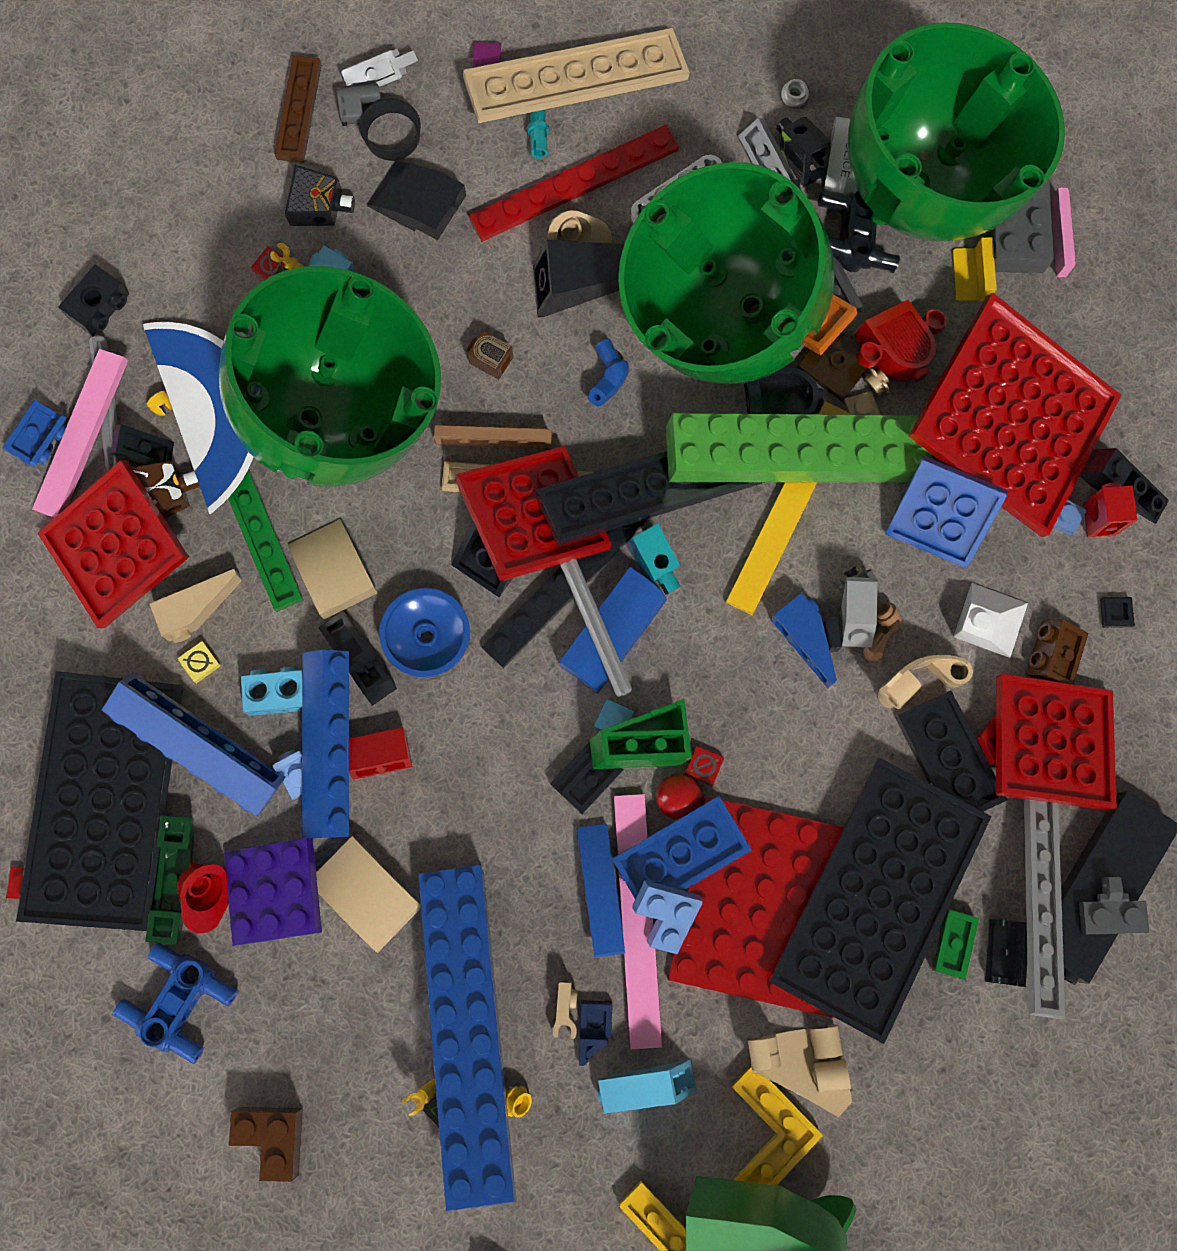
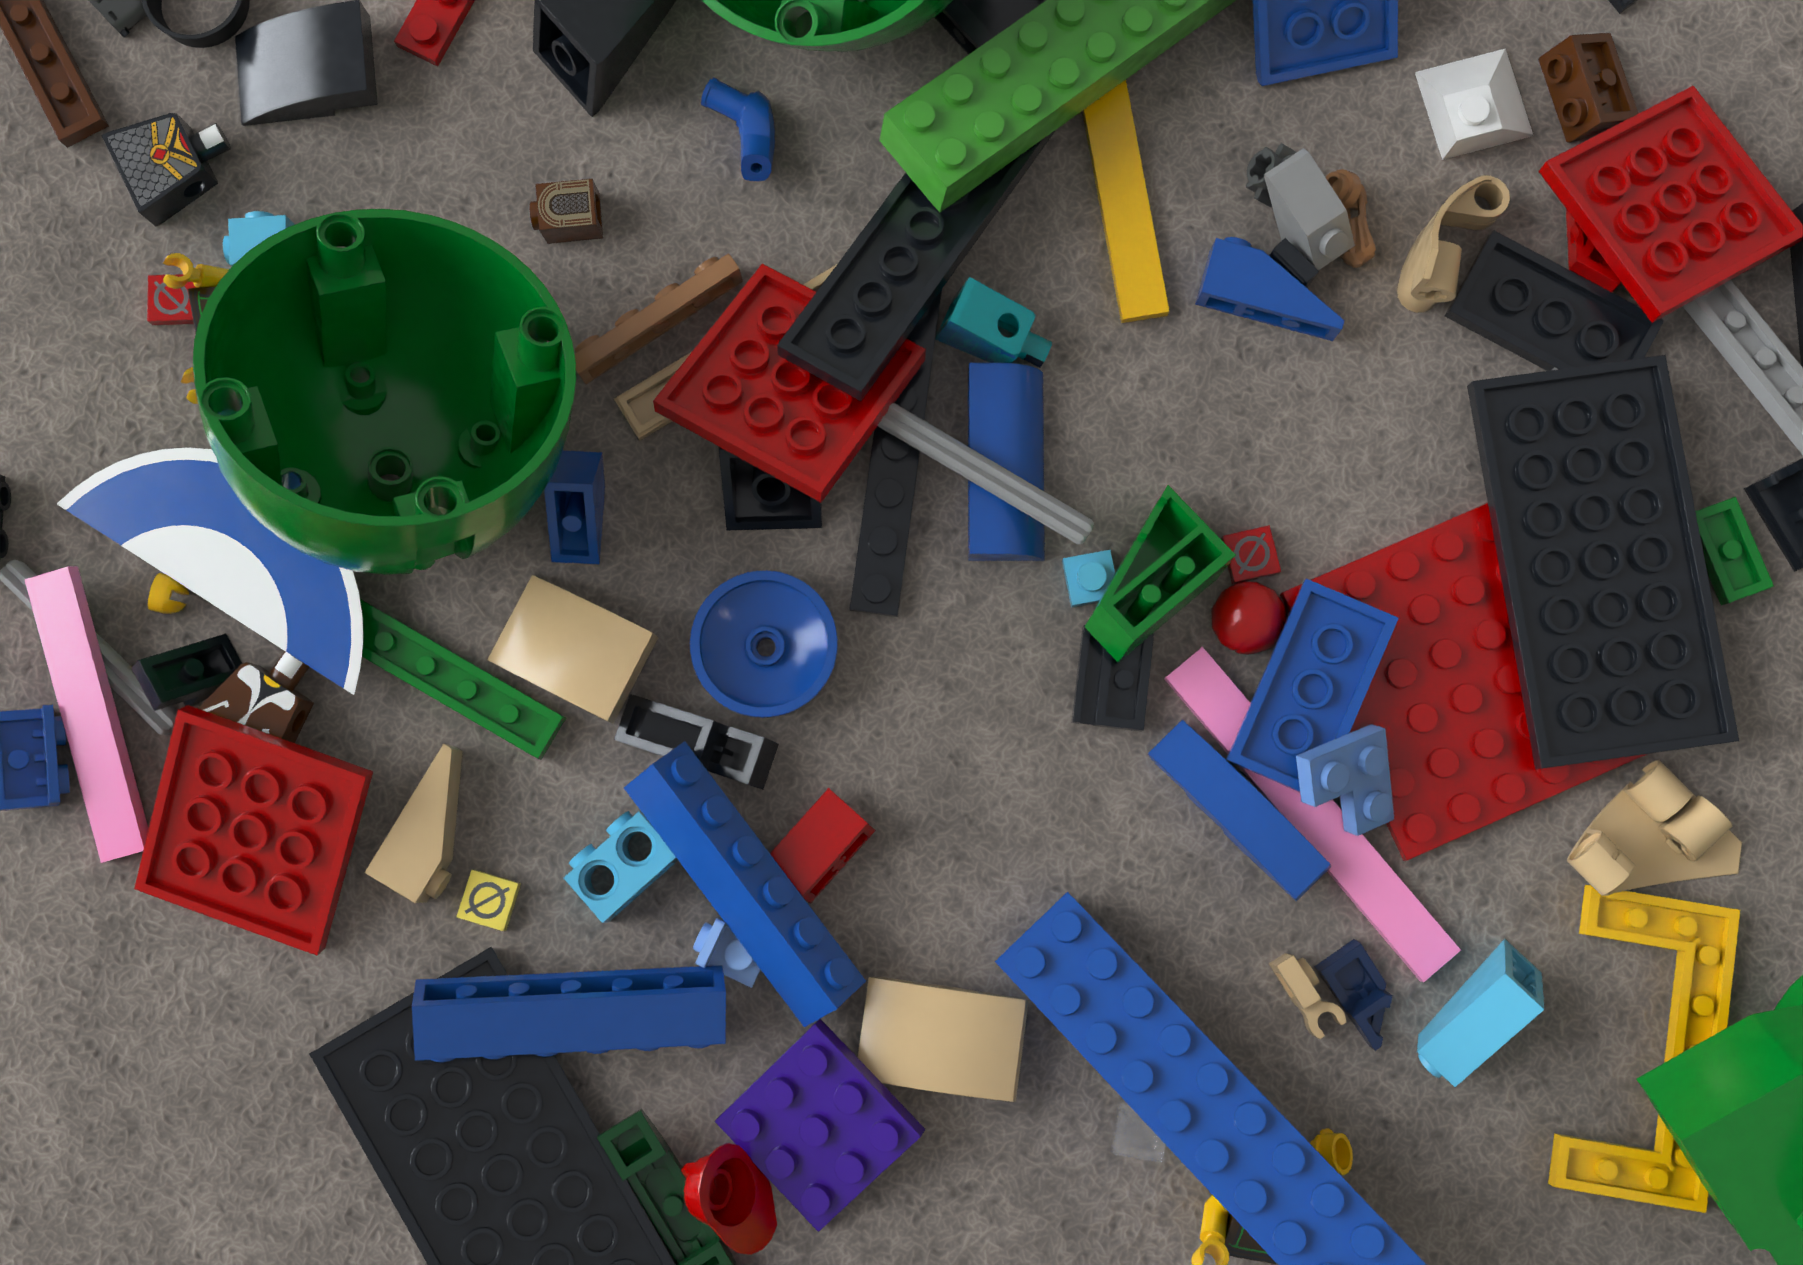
camera: 30 degrees left, 5 degrees up
(385, 499) = (576, 507): none -> blue slope

